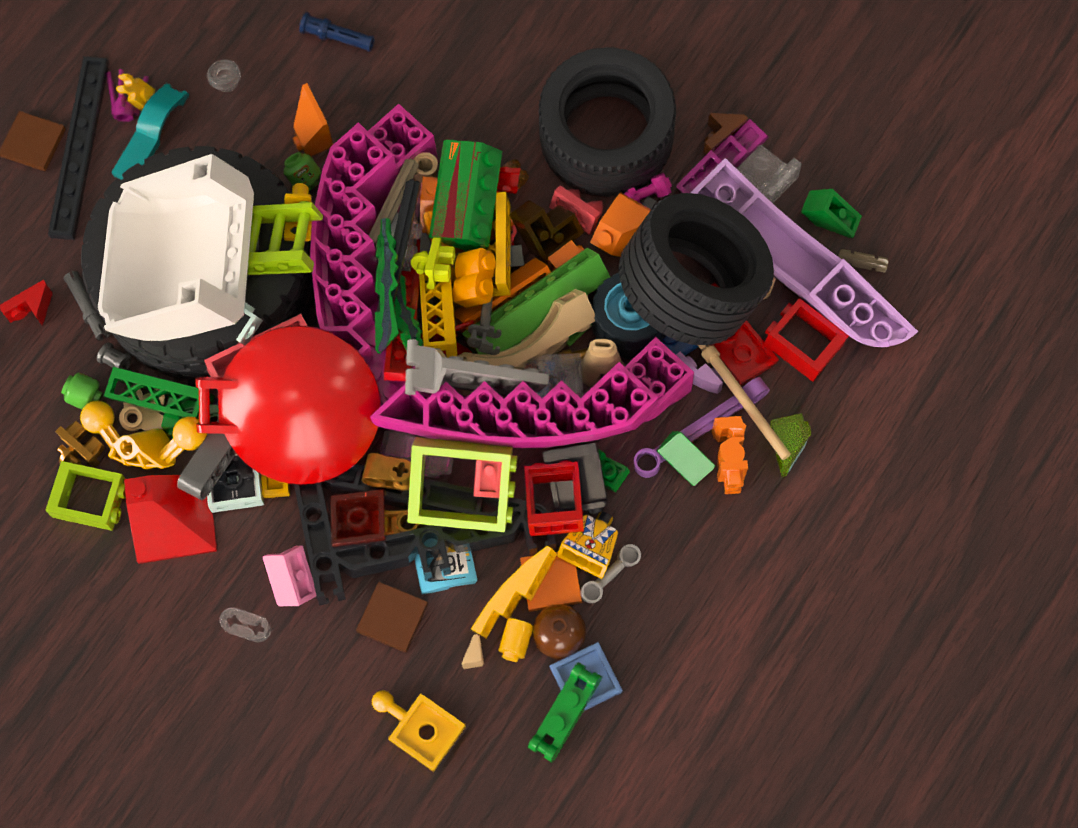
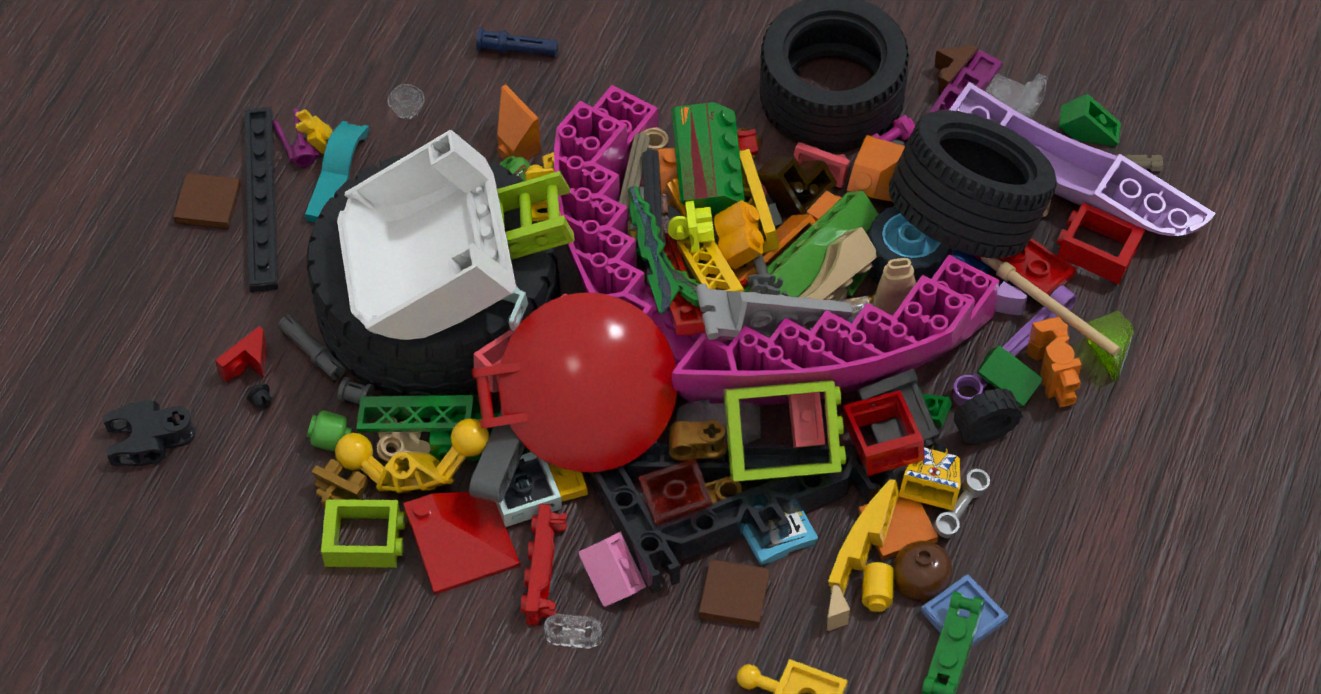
camera: 15 degrees left, 15 degrees down
(33, 343) = (259, 395): none -> black piece
(234, 551) = (541, 553): none -> red piece
(653, 497) = (987, 416): none -> black tyre

